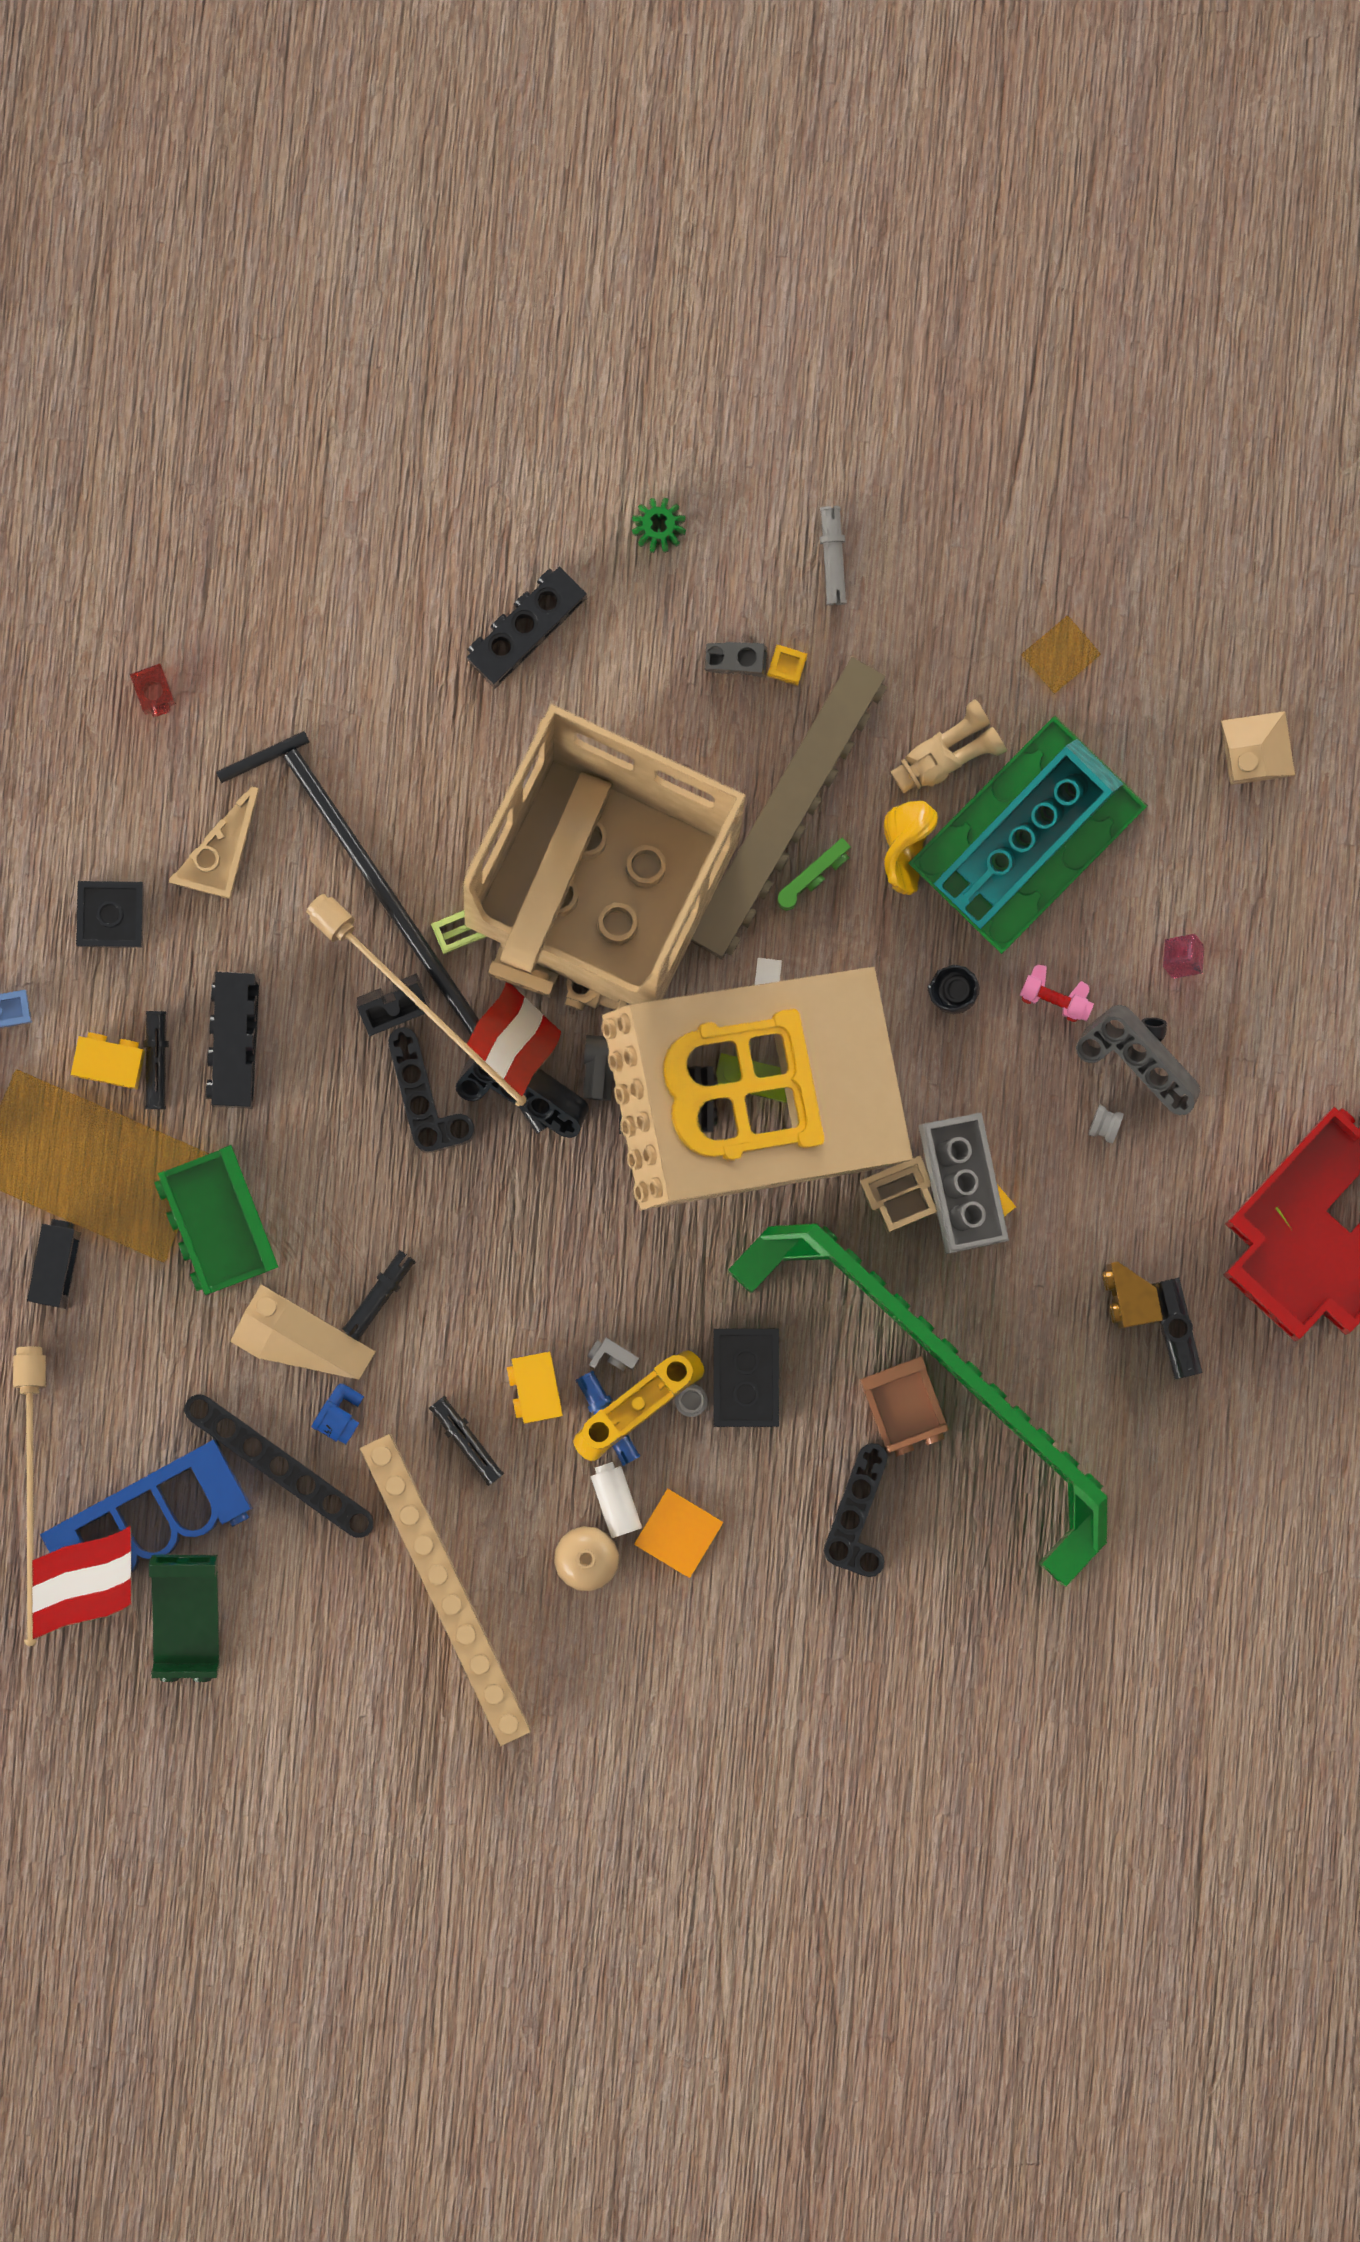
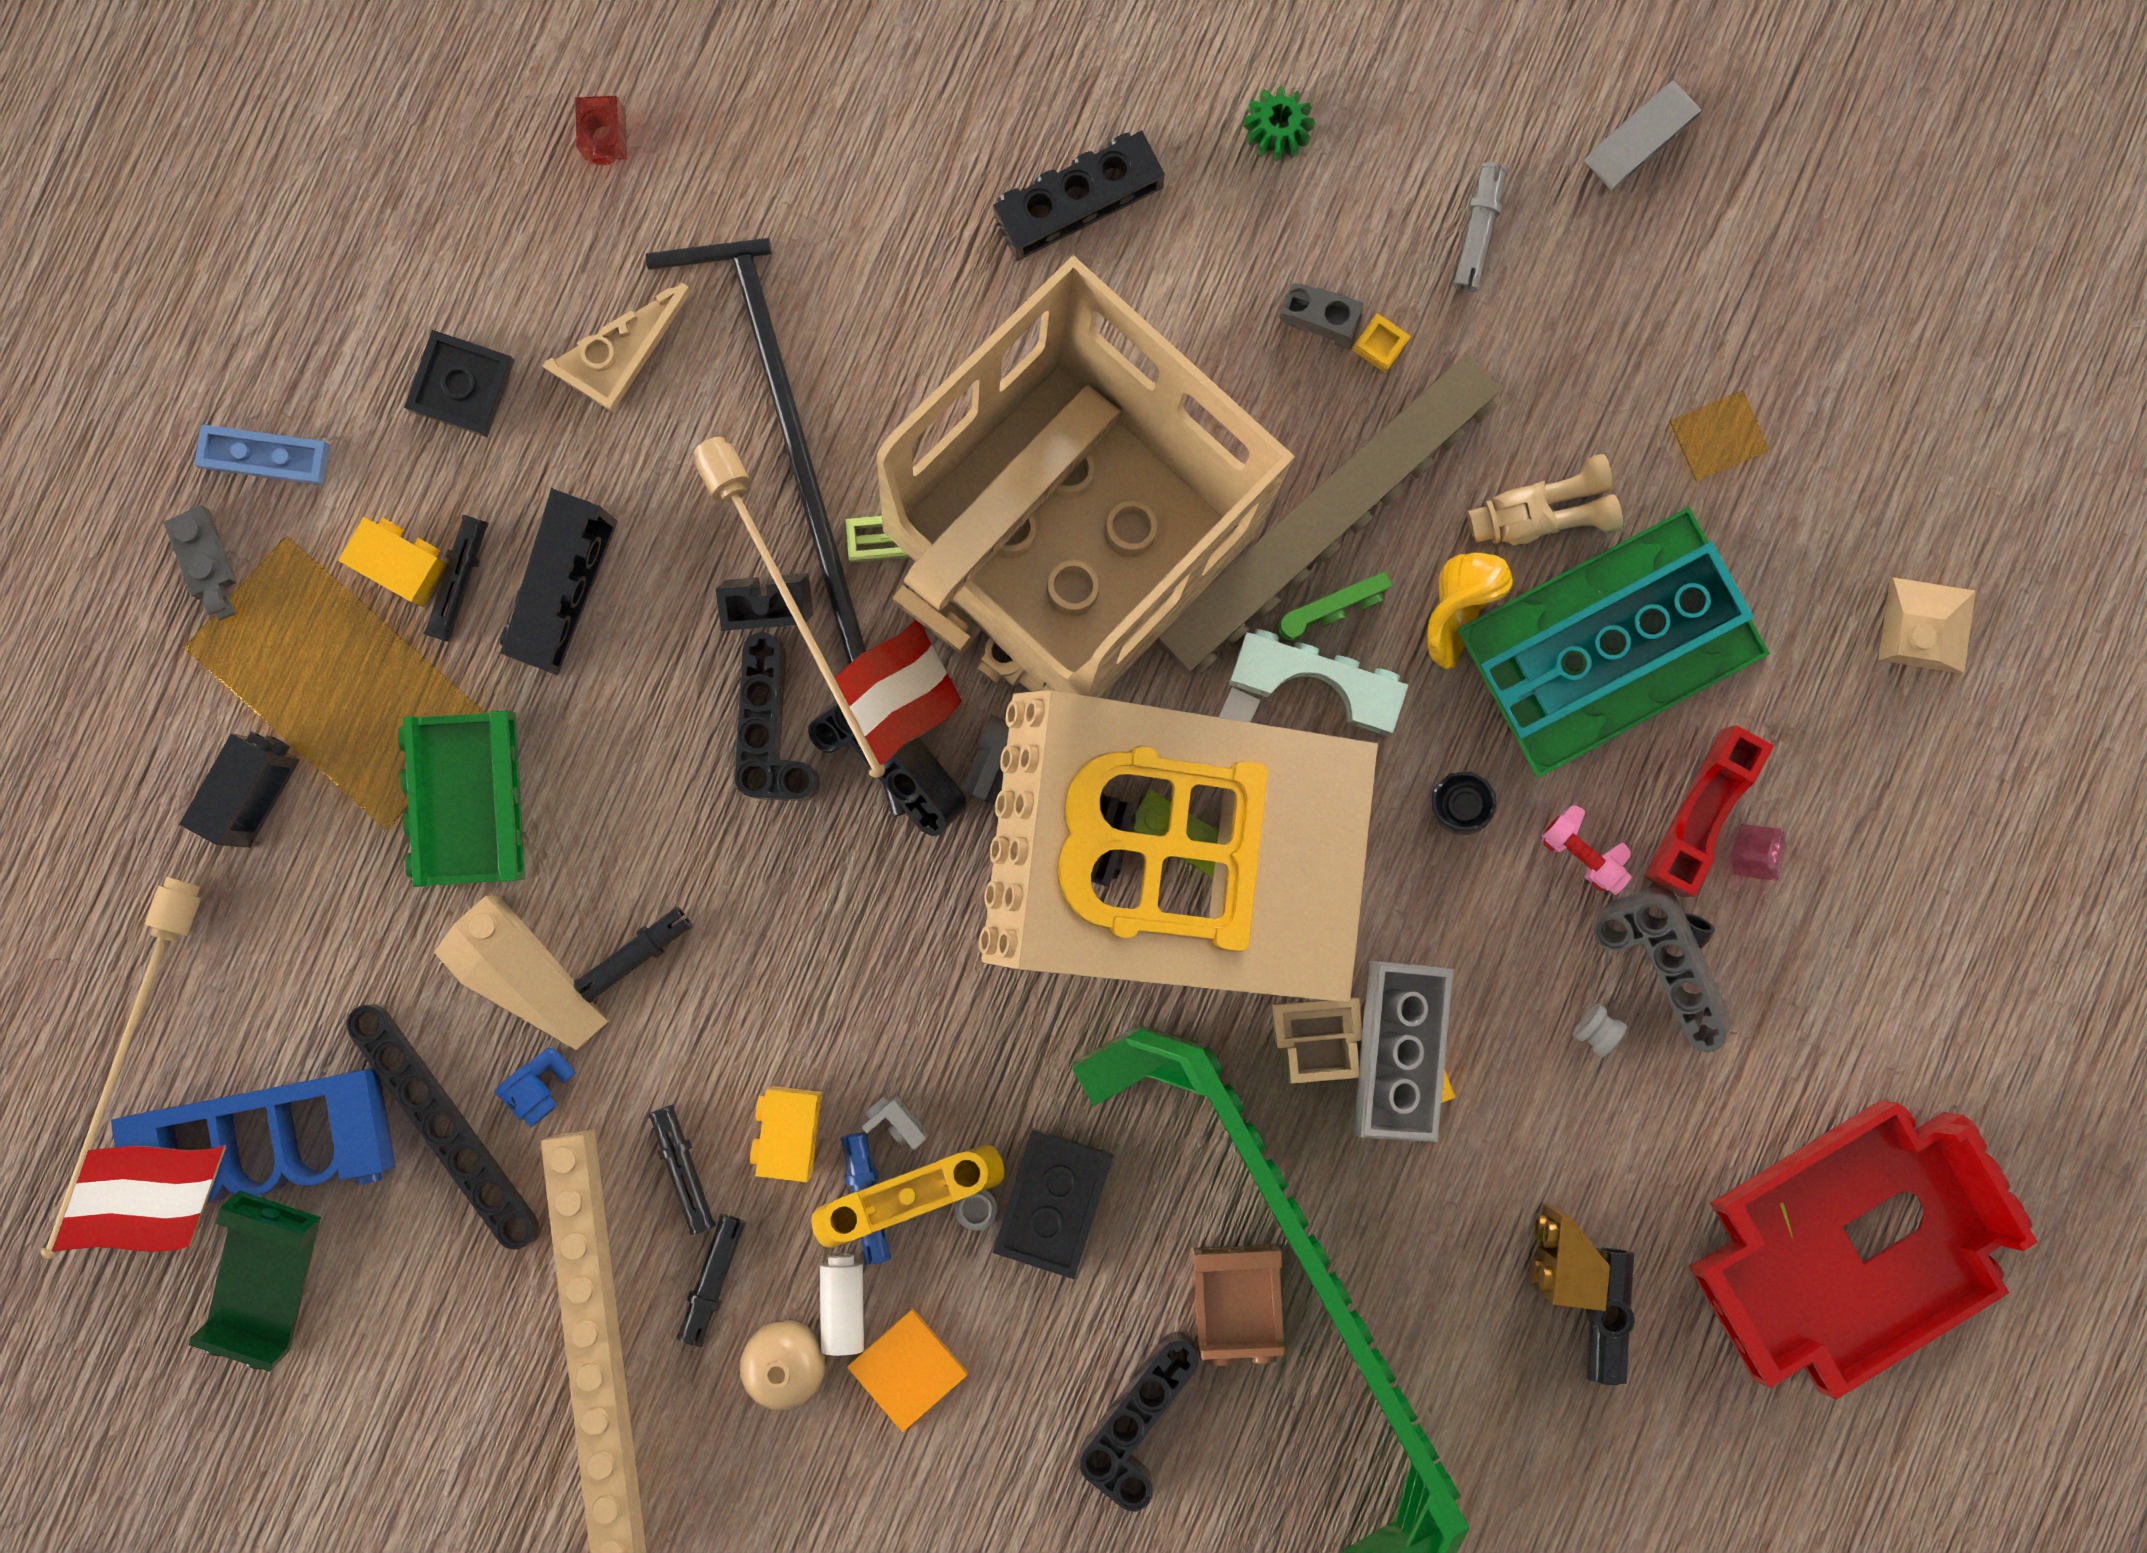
camera: 20 degrees right, 0 degrees up
(514, 1513) = (705, 1296): none -> black pin
(860, 933) = (1369, 698): none -> light aqua arch
(933, 448) = (1643, 135): none -> light grey beam
(1133, 938) = (1691, 838): none -> red arch

